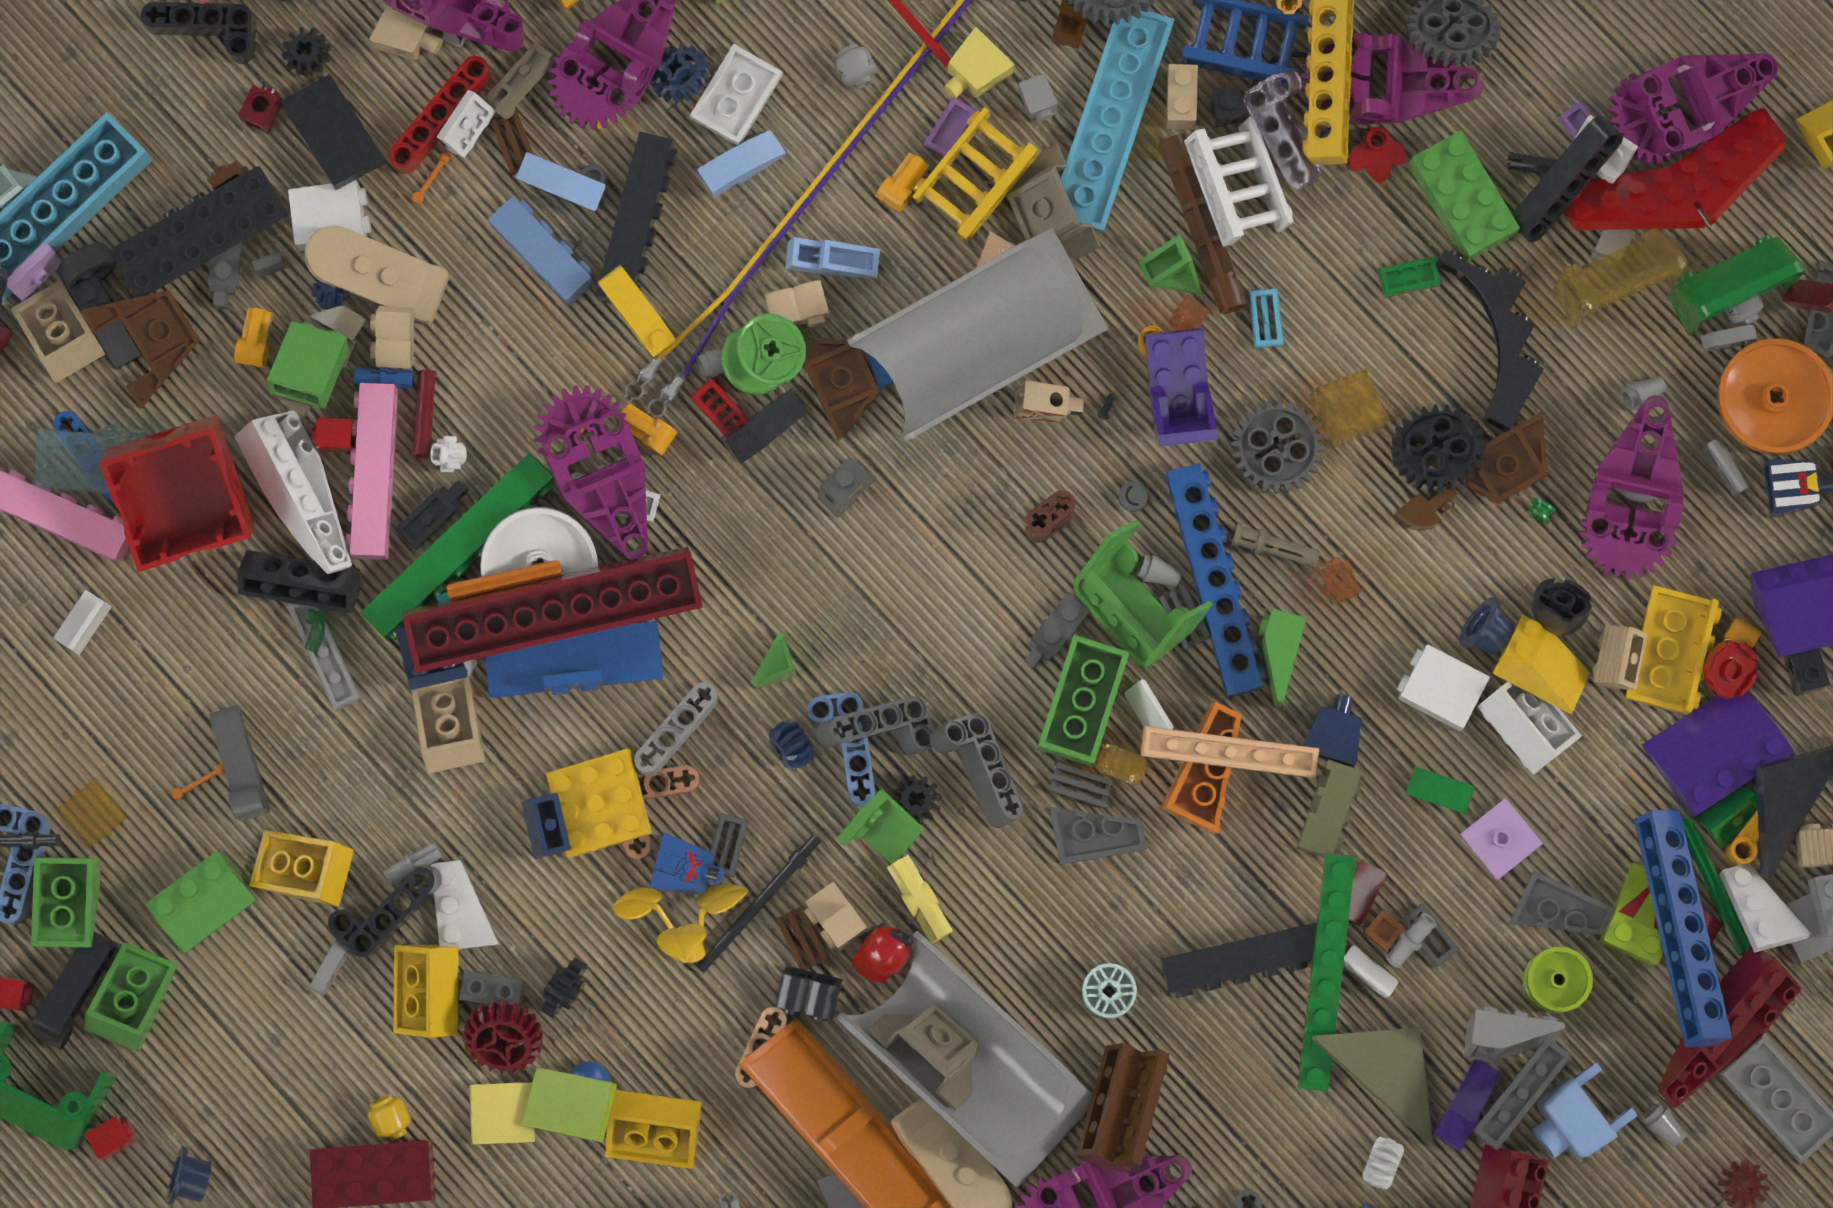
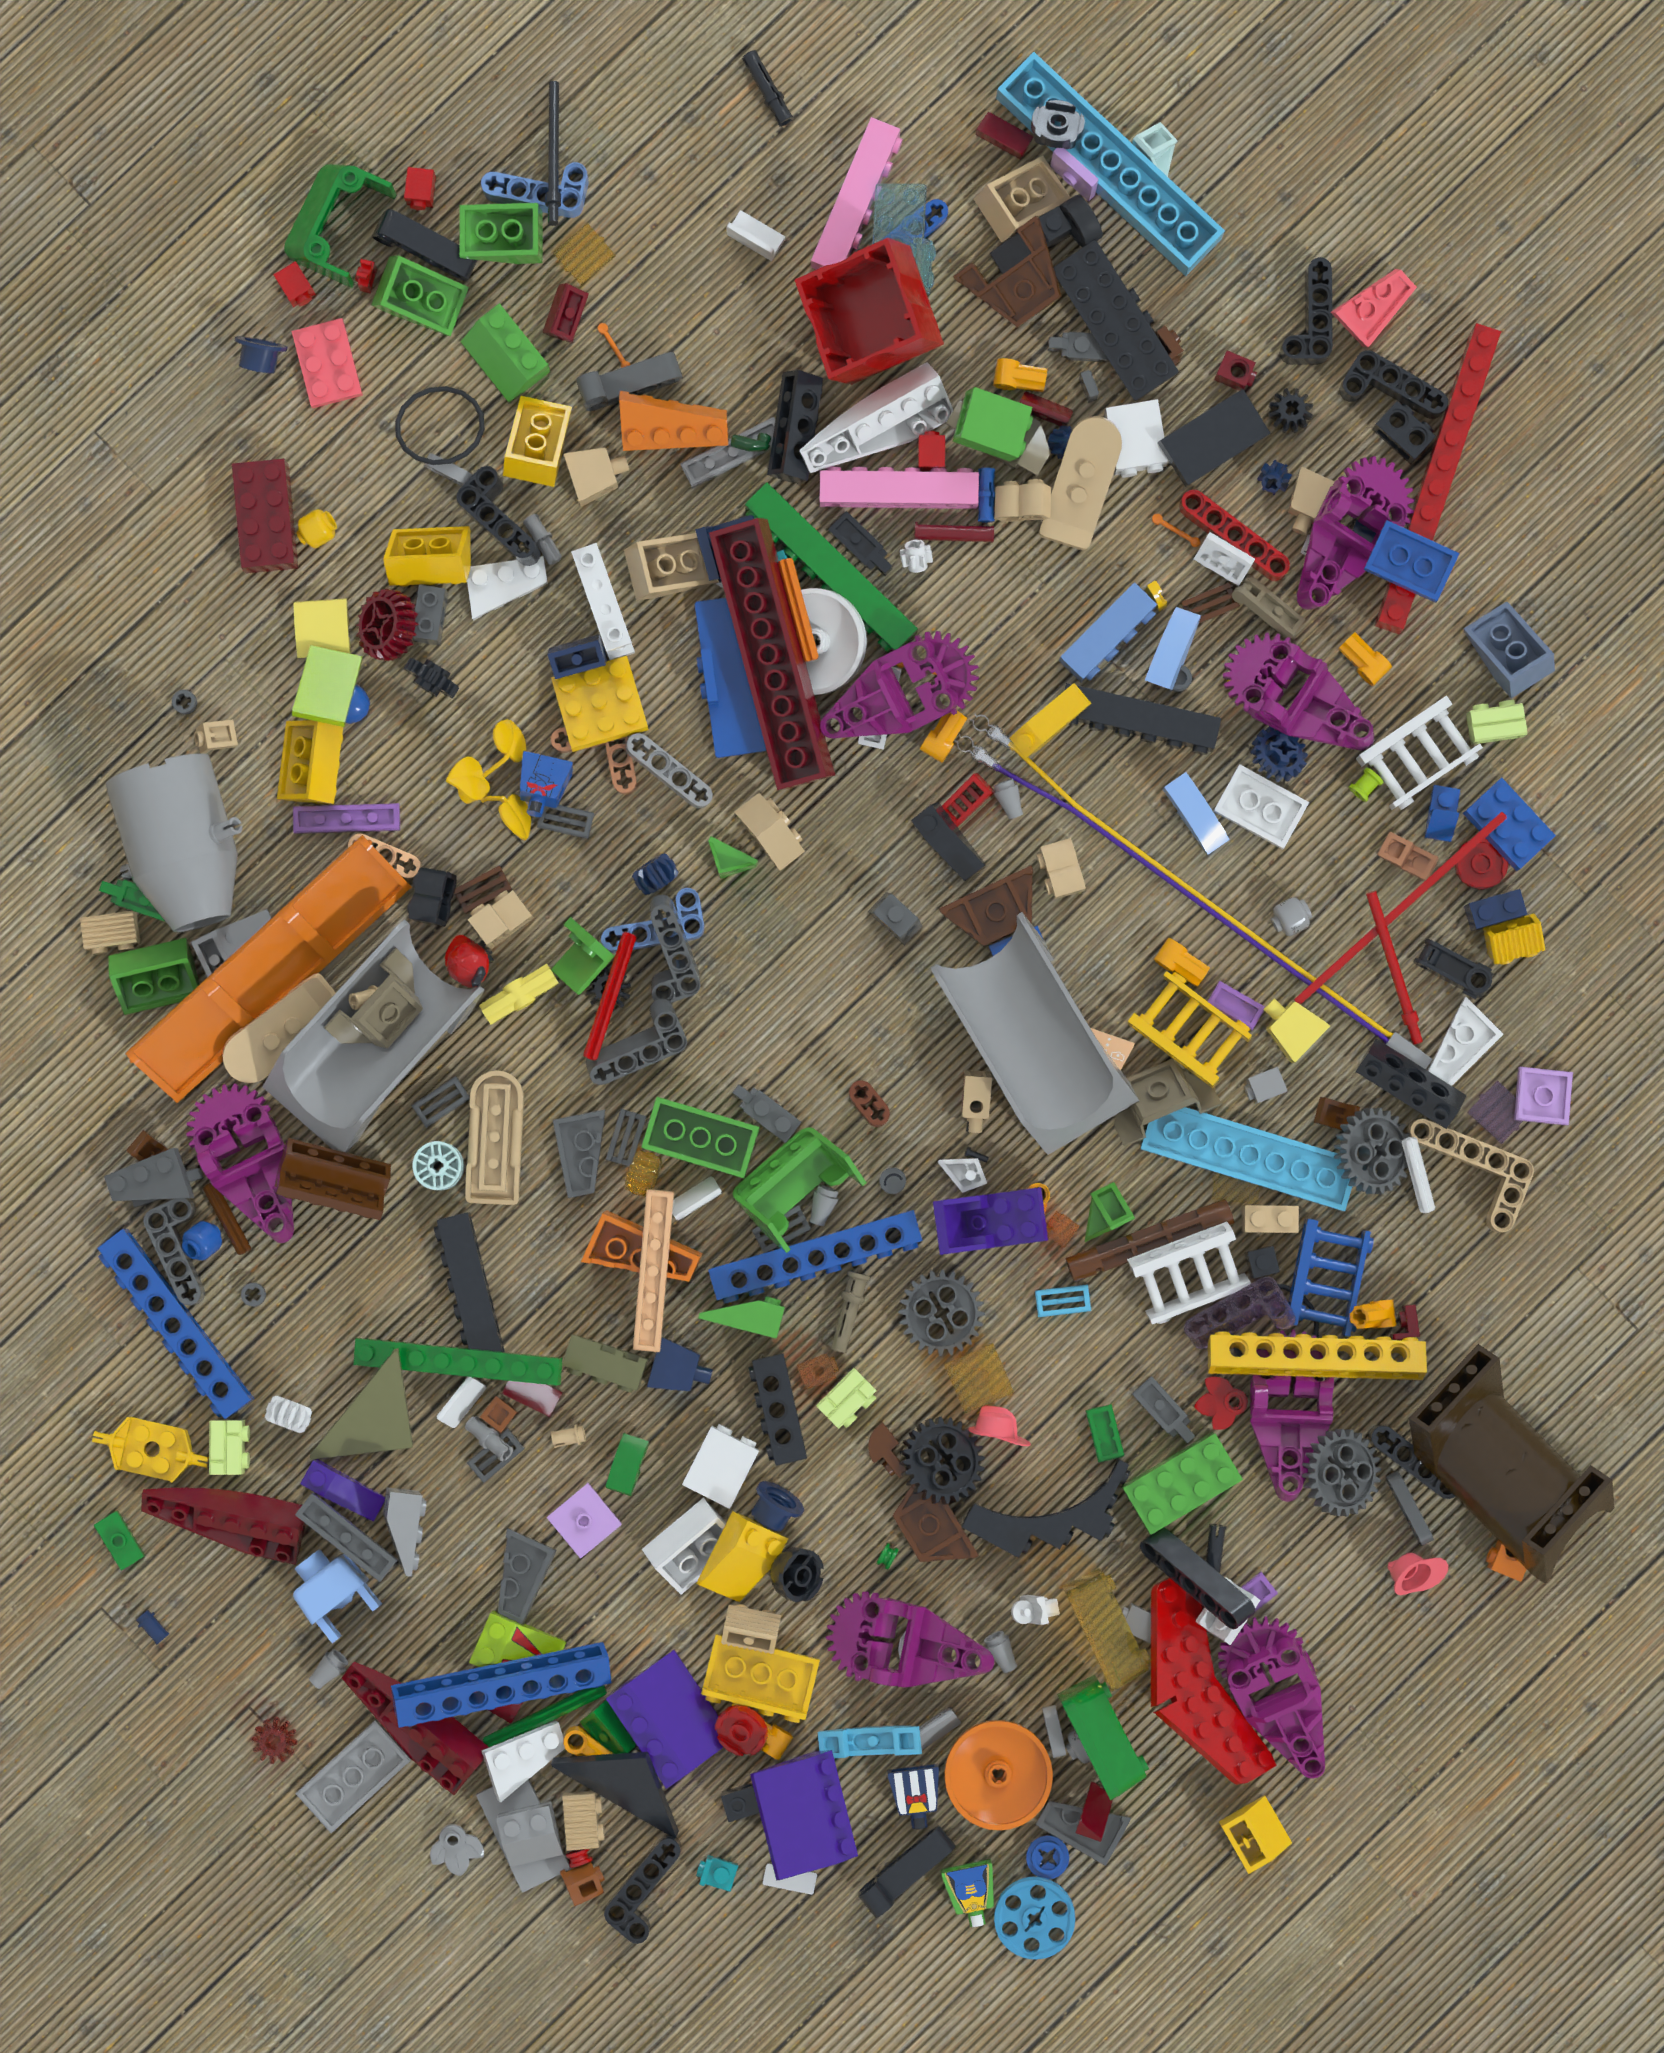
camera: 85 degrees right, 5 degrees up
(105, 1057) = (366, 275): none -> red plate
(157, 835) = (565, 312): none -> dark red slope
(201, 1103) = (327, 363): none -> coral plate
(291, 718) = (669, 424): none -> orange wedge
(292, 310) = (1047, 409): none -> dark red slope
(304, 1013) = (440, 461): none -> black piece
(340, 805) = (594, 473): none -> tan torso
(378, 70) = (1274, 477): none -> dark blue gear
(486, 794) = (603, 601): none -> white fence
(497, 200) = (1154, 592): none -> yellow tile
(717, 1090) = (346, 818): none -> medium lavender tile
(746, 617) = (771, 830): none -> tan brick
(763, 354) = (1009, 853): bright green piece -> none
(796, 860) = (552, 883): black bar -> none
(832, 258) = (1108, 899): light blue slope -> none
(923, 1068) = (357, 999): none -> tan pin
(925, 795) = (609, 996): none -> red axle
(1023, 967) = (460, 1089): none -> dark grey tile
(1080, 929) = (495, 1140): none -> tan piece
(1126, 419) = (964, 1173): none -> white piece
(1370, 550) = (847, 1398): none -> yellowish green brick
(1384, 214) = (1163, 1409): none -> dark grey hinge
(1399, 387) = (998, 1423): none -> coral piece
(1409, 854) = (568, 1436): none -> tan pin
(1423, 607) = (779, 1452): none -> black brick
(1540, 985) = (464, 1558): lime wheel -> none
(1599, 352) = (1034, 1609): none -> white hips
(1740, 530) = (871, 1741): none -> medium azure slope

